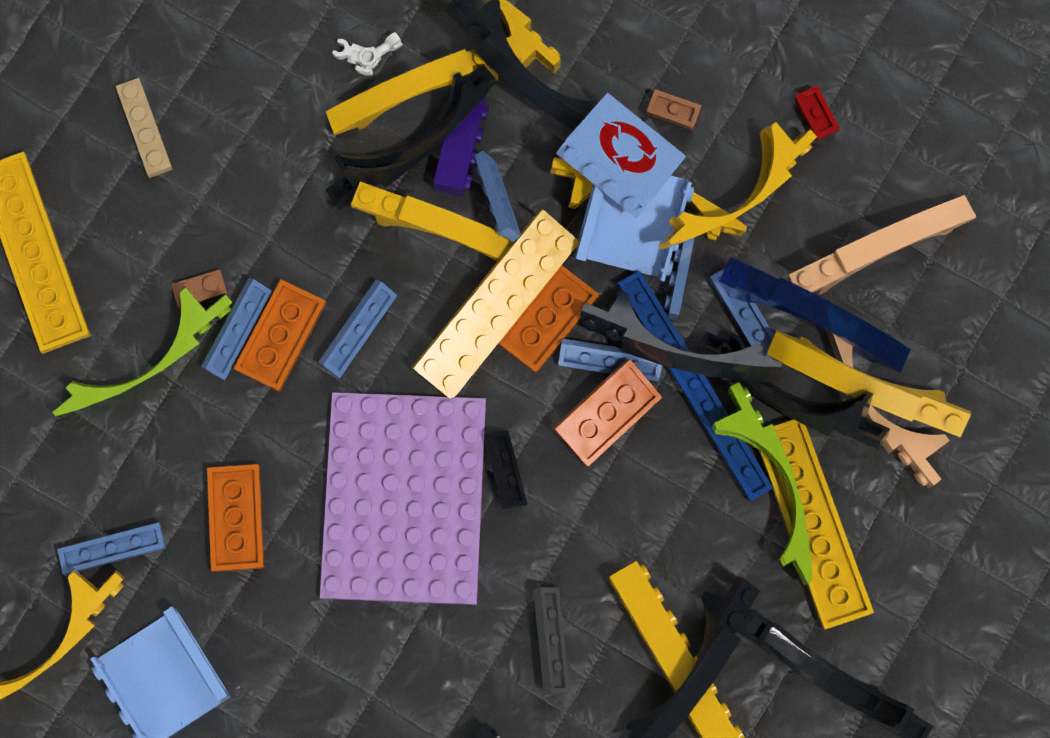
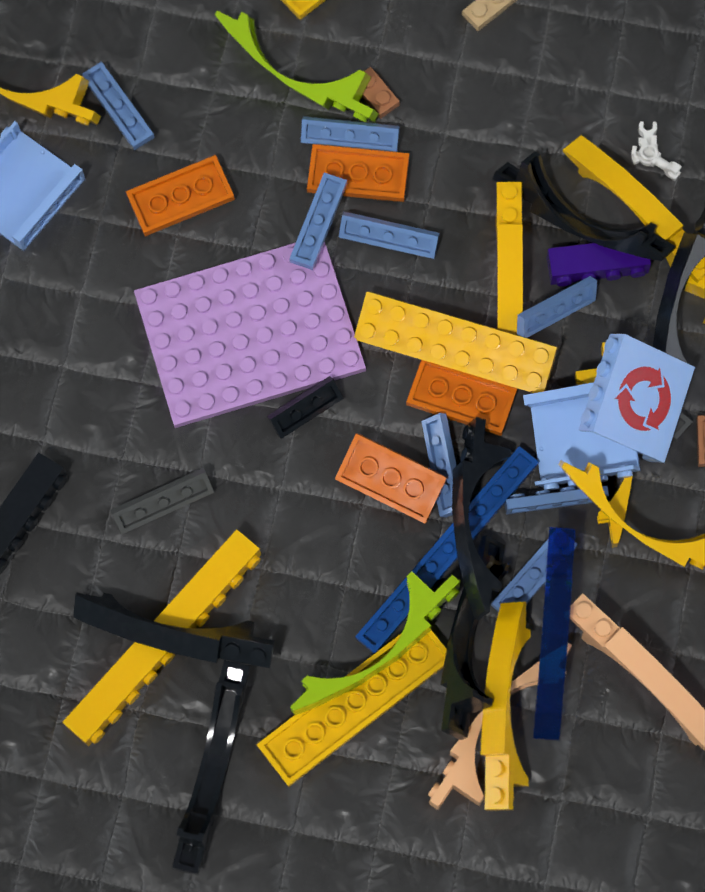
camera: 75 degrees right, 5 degrees down
(320, 389) = (318, 221): none -> medium blue plate

